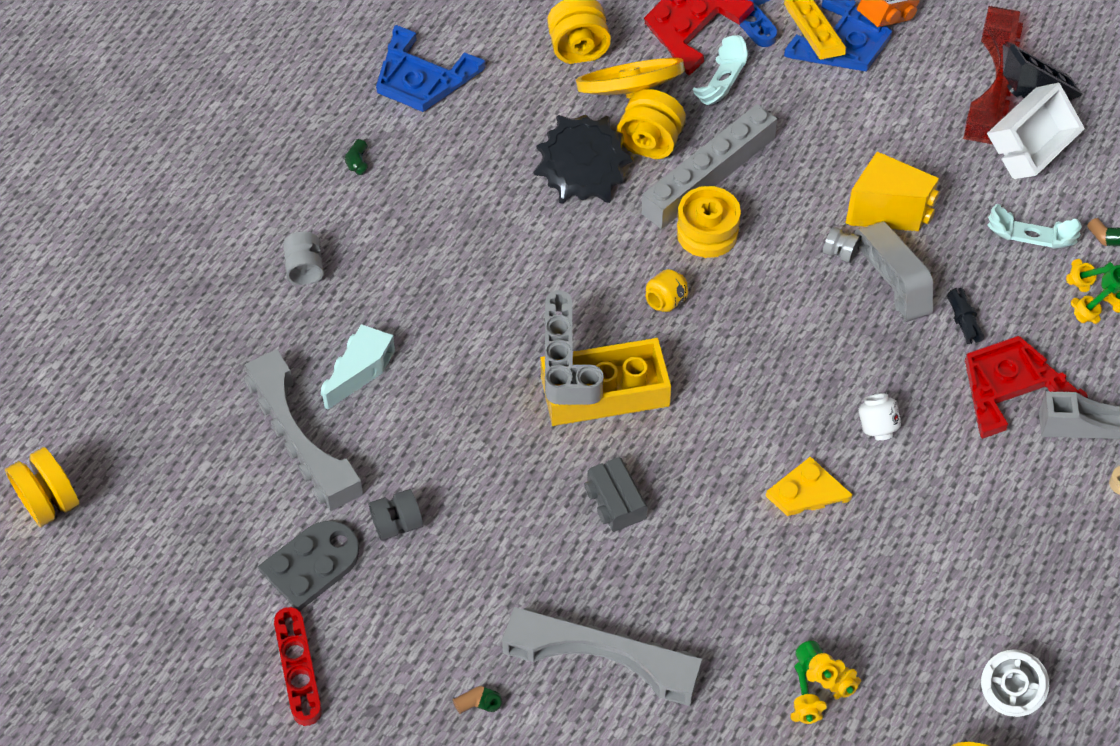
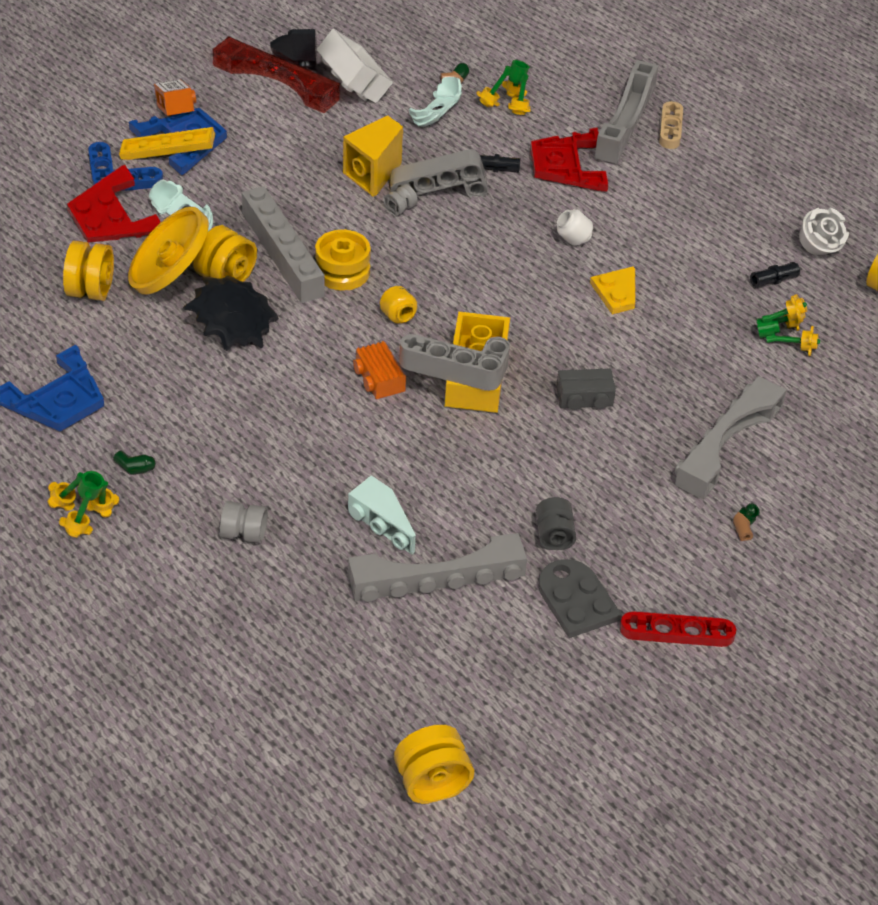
camera: 75 degrees left, 10 degrees down
(282, 126) = (95, 497): none -> plant
(581, 297) = (379, 370): none -> orange brick
(918, 649) = (774, 274): none -> black pin

